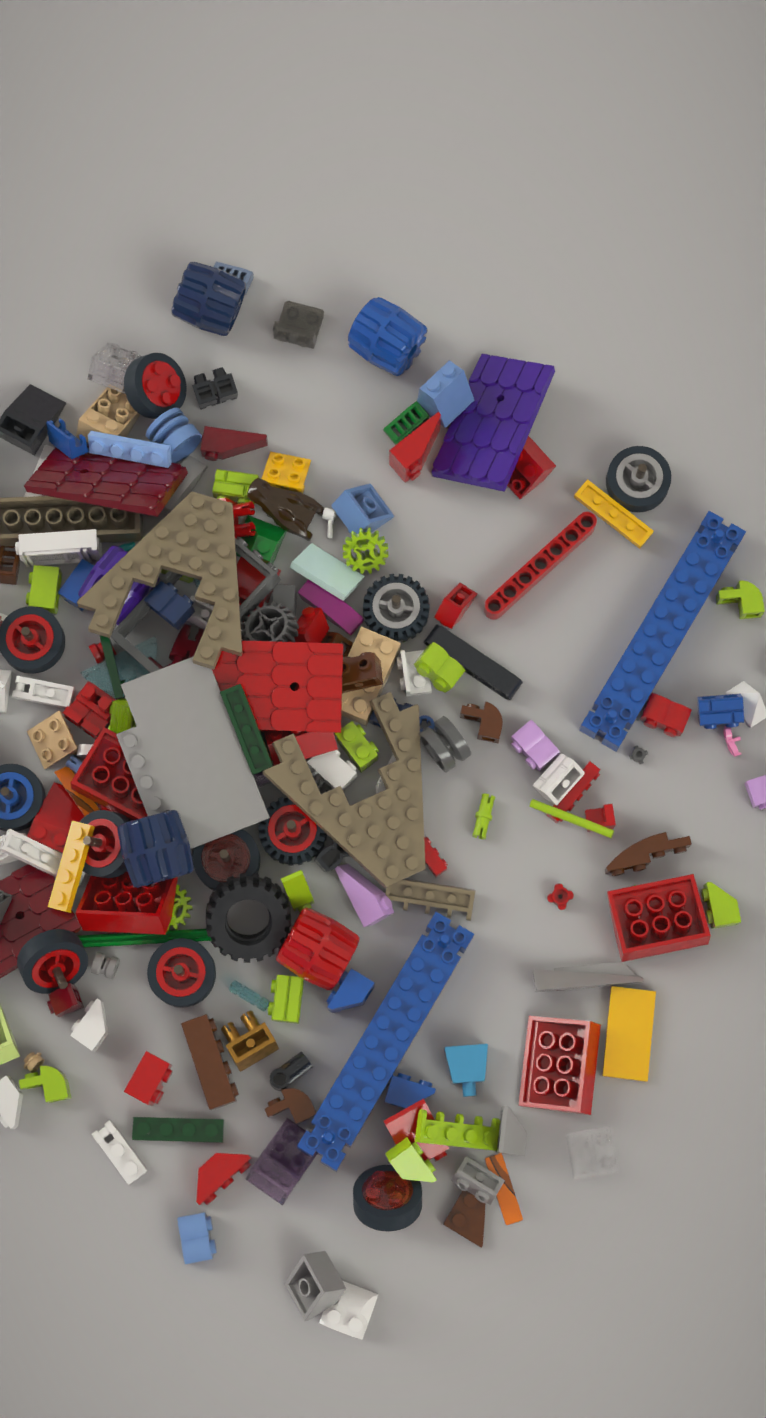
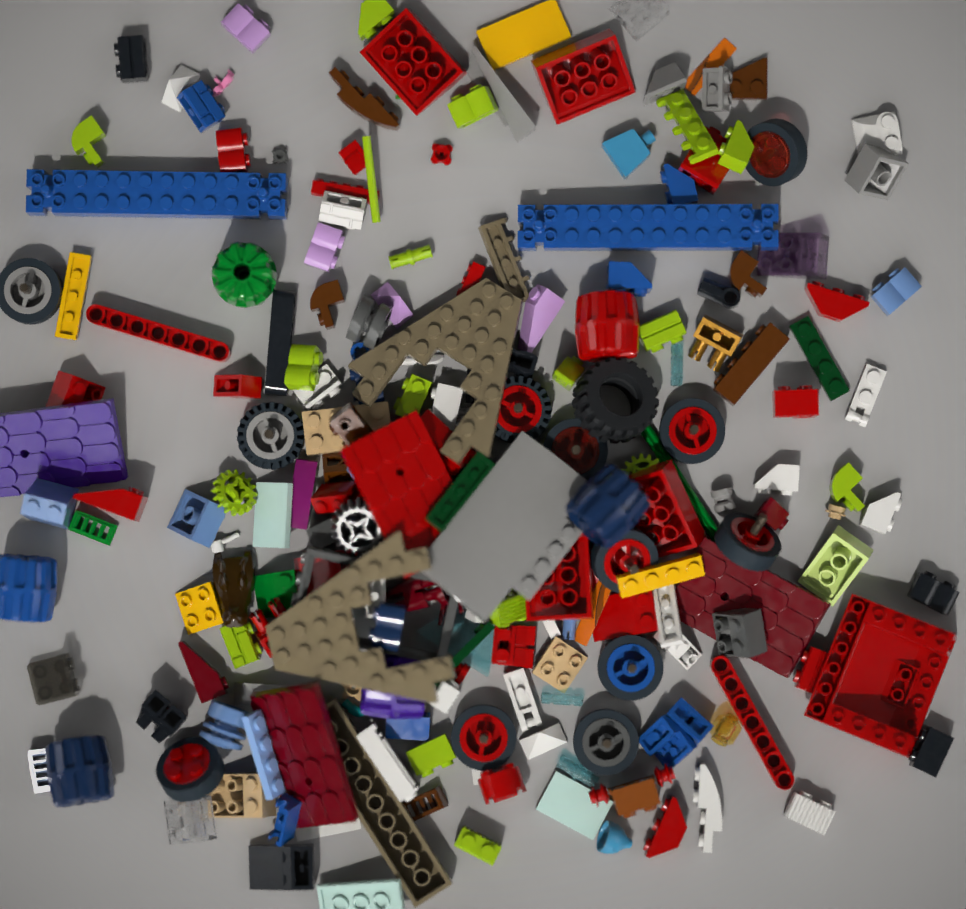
camera: 120 degrees left, 10 degrees up
(22, 726) = (561, 698): none -> clear light blue axle
(80, 620) = (447, 694): none -> white brick
(457, 777) = (400, 312): none -> lavender slope
(548, 659) = (236, 261): none -> green wheel
(587, 947) = (473, 106): none -> lime brick

